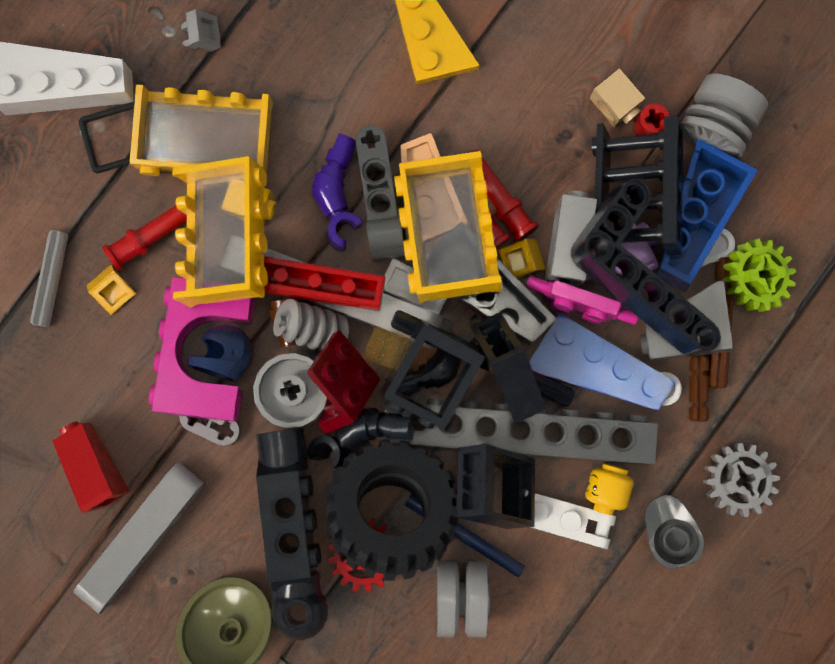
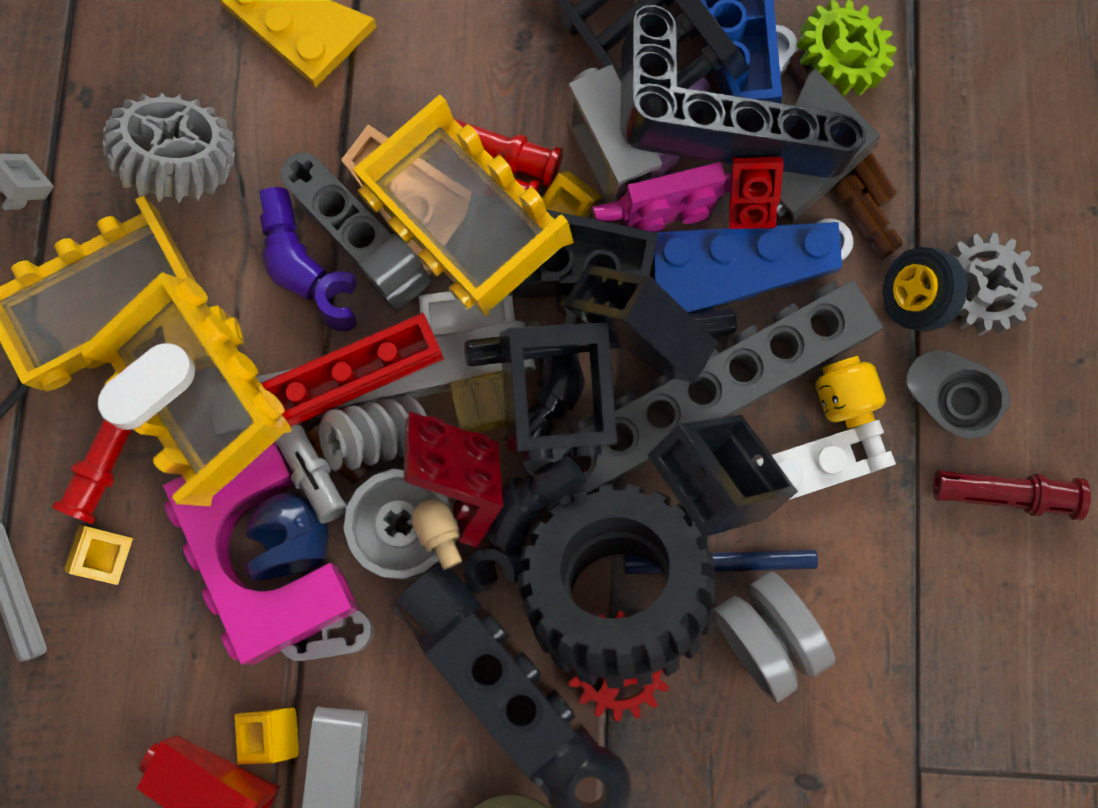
camera: 40 degrees left, 5 degrees down
(140, 458) = (266, 736): none -> yellow slope
(198, 217) = (146, 386): none -> white tile
(259, 329) = (306, 476): none -> light grey pin
(309, 410) = (437, 531): none -> tan cylinder
(310, 76) = (168, 147): none -> light grey gear
(631, 333) = (755, 192): none -> red slope
(677, 622) = (1033, 494): none -> dark red pin
(686, 462) = (909, 299): none -> black wheel

